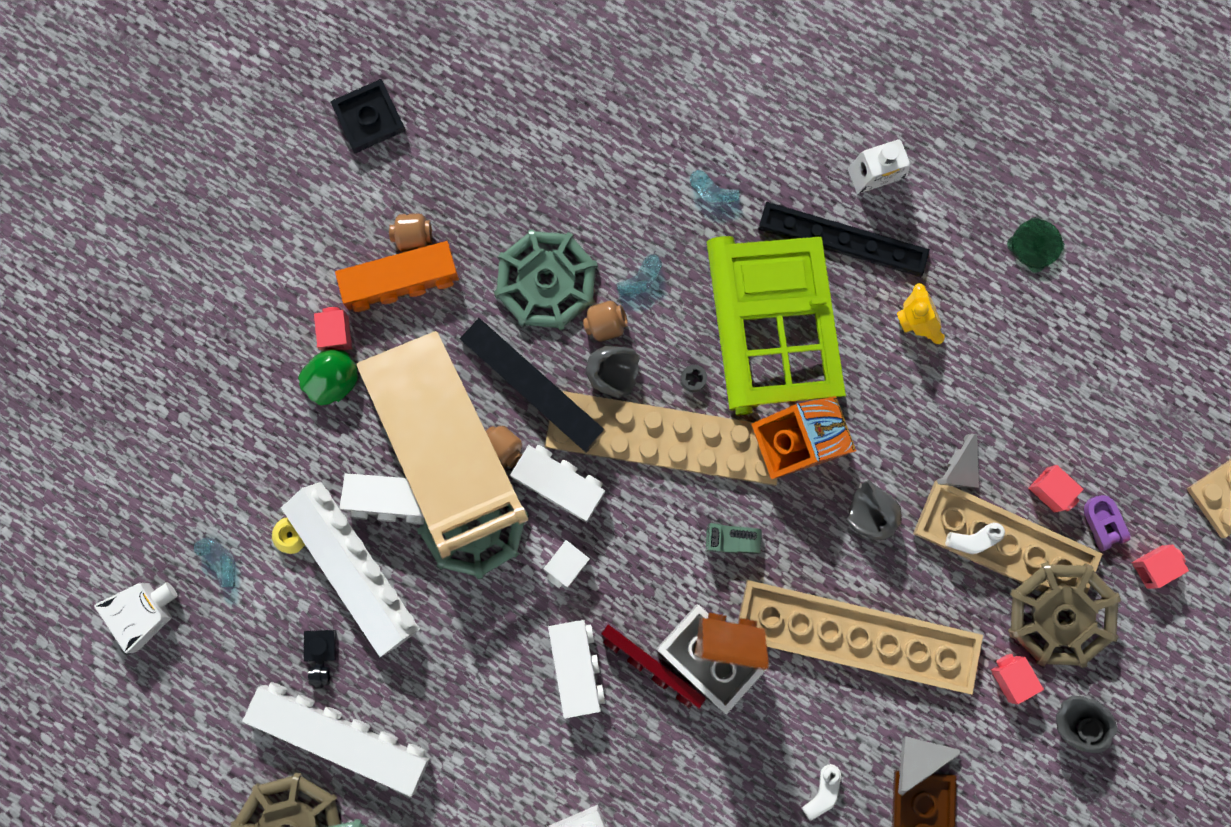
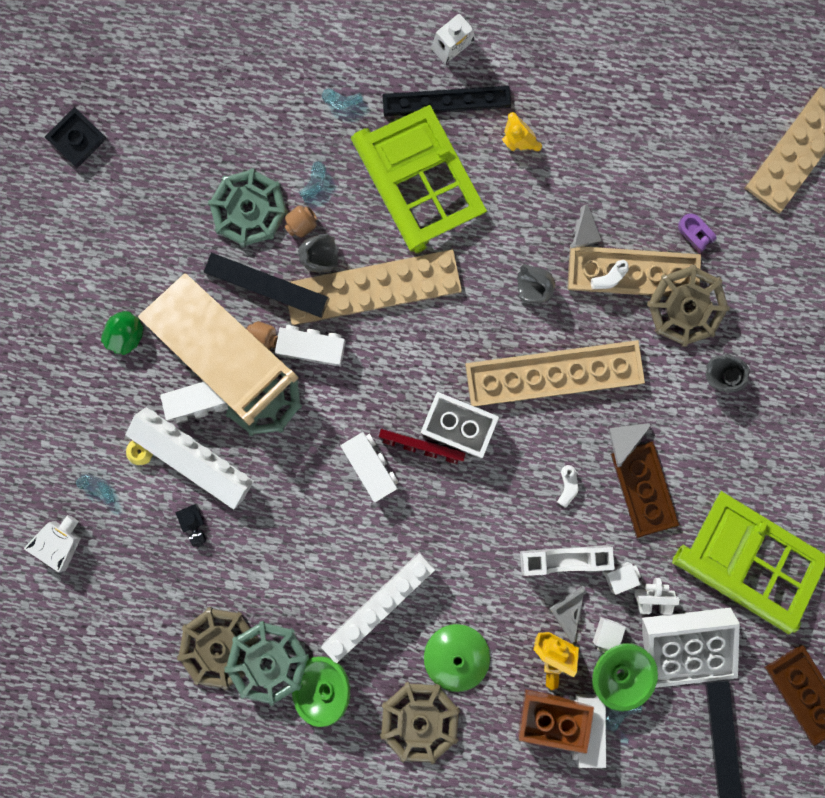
camera: 15 degrees left, 5 degrees up
(332, 329) = (111, 299): coral brick -> none
(337, 739) = (226, 575): white brick -> none
(397, 276) = (142, 244): orange brick -> none
(410, 231) = (139, 209): medium nougat head -> none
(565, 565) = (337, 400): white brick -> none
(688, 371) = (372, 235): dark grey bush -> none
(732, 642) = (467, 407): dark orange slope -> none
(733, 539) = (445, 339): sand green leg -> none
(803, 436) = (467, 250): orange slope -> none
(1016, 678) = (670, 361): coral brick -> none
(1036, 244) = (583, 53): clear green piece -> none
(1056, 489) = (655, 222): coral brick -> none
(1160, 566) = (743, 248): coral brick -> none

